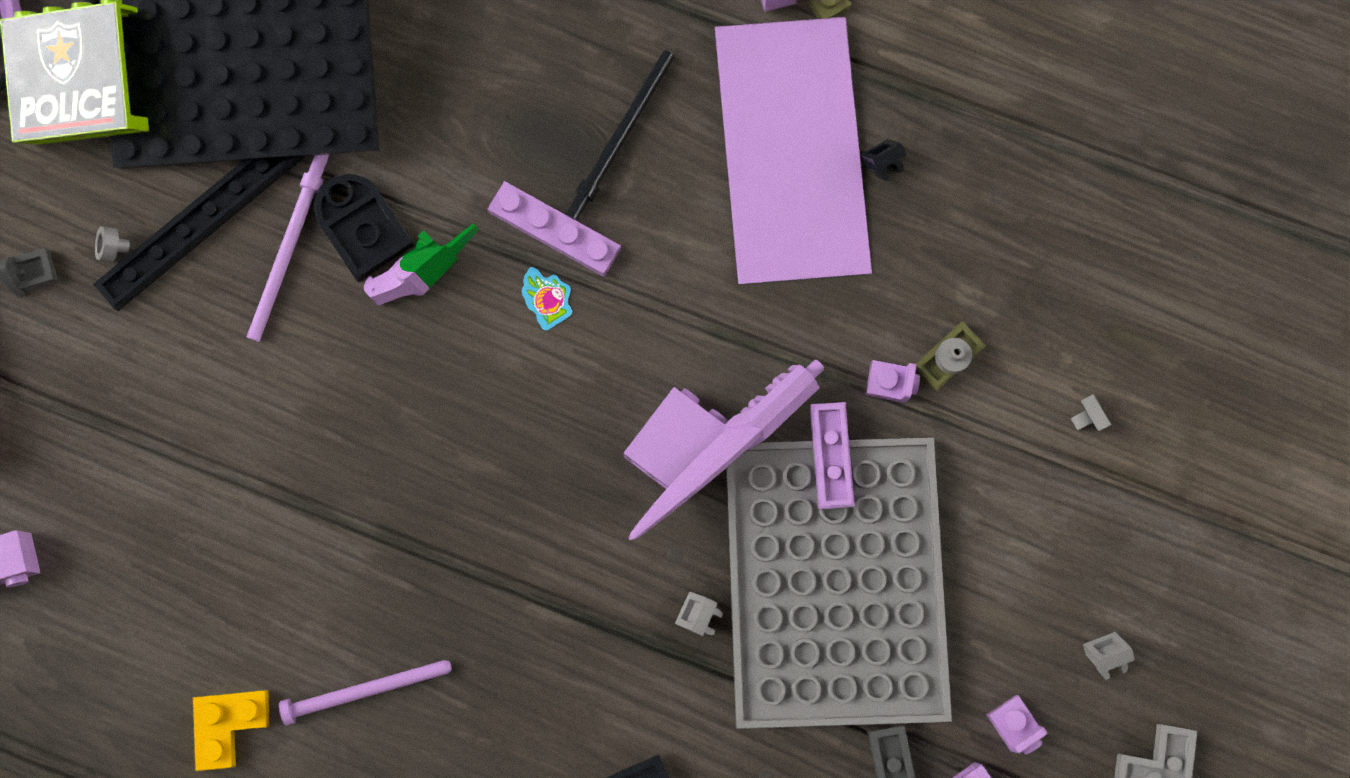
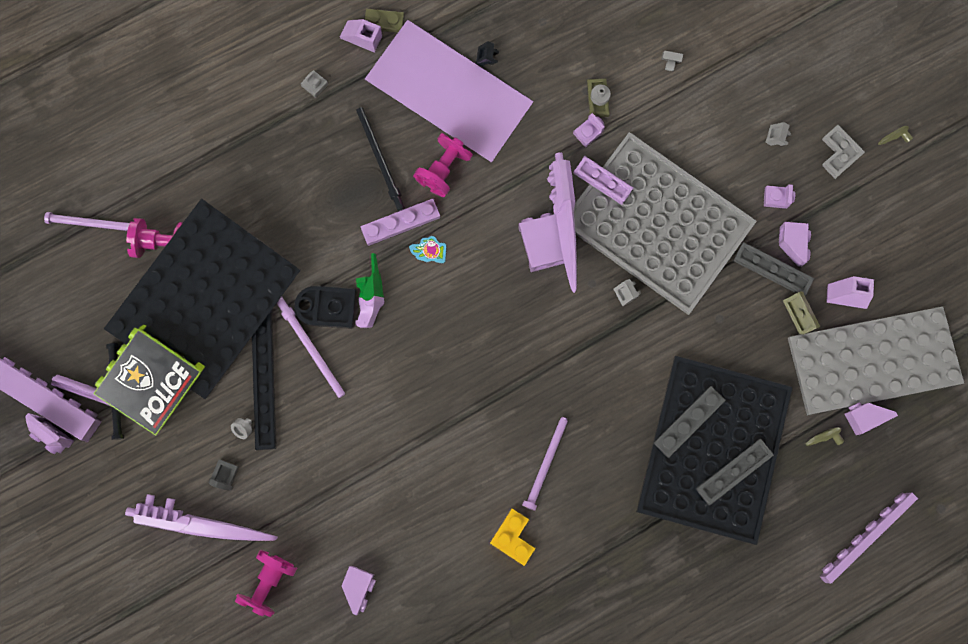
camera: 50 degrees left, 0 degrees up
(659, 222) = (438, 171): none -> dark pink piece

